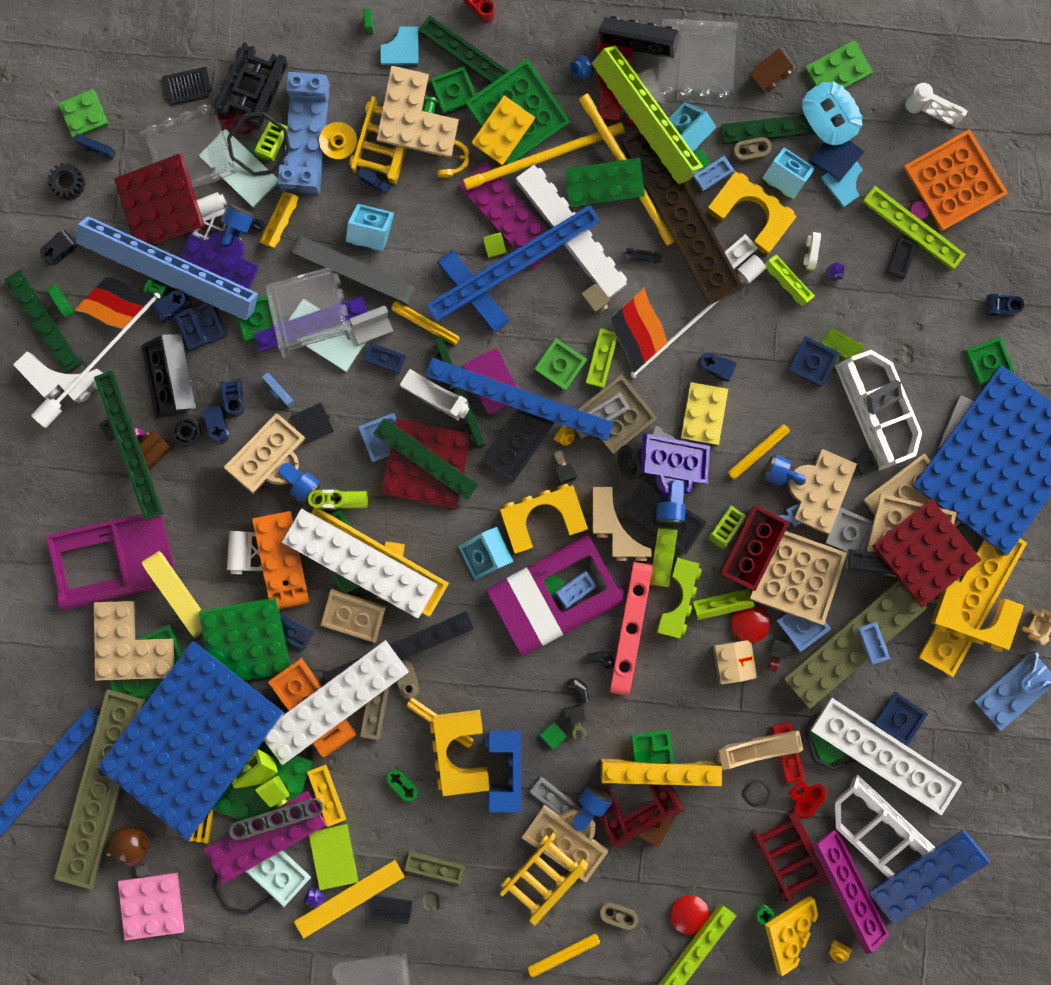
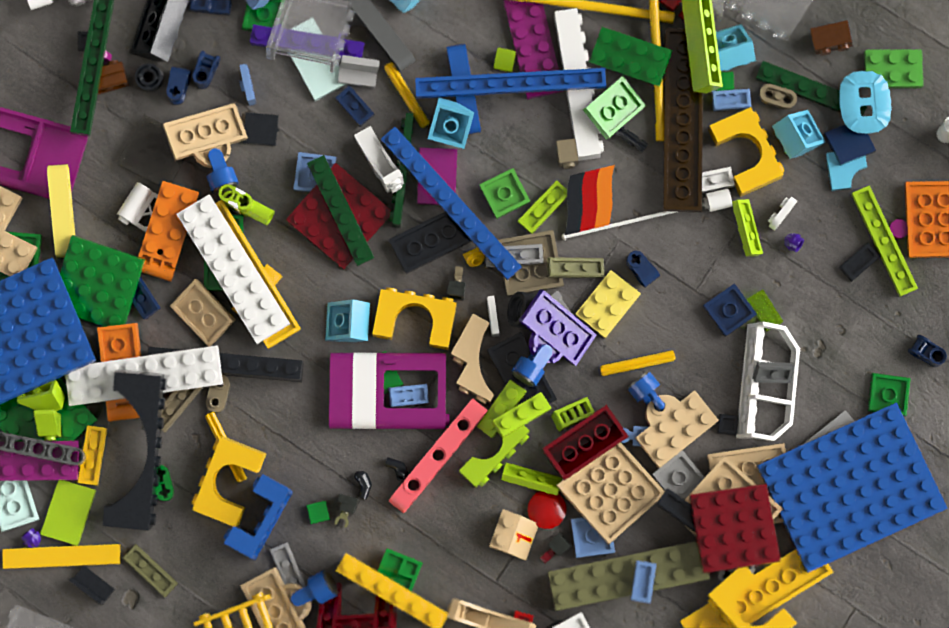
camera: 30 degrees right, 5 degrees down
(346, 720) = (145, 394): none -> black arch
(480, 328) = (451, 123): none -> medium azure slope
(610, 479) = (492, 316): none -> white tile
(616, 236) = (614, 107): none -> plate
(659, 397) = (575, 267): none -> olive tile
(685, 553) = (521, 415): none -> lime plate

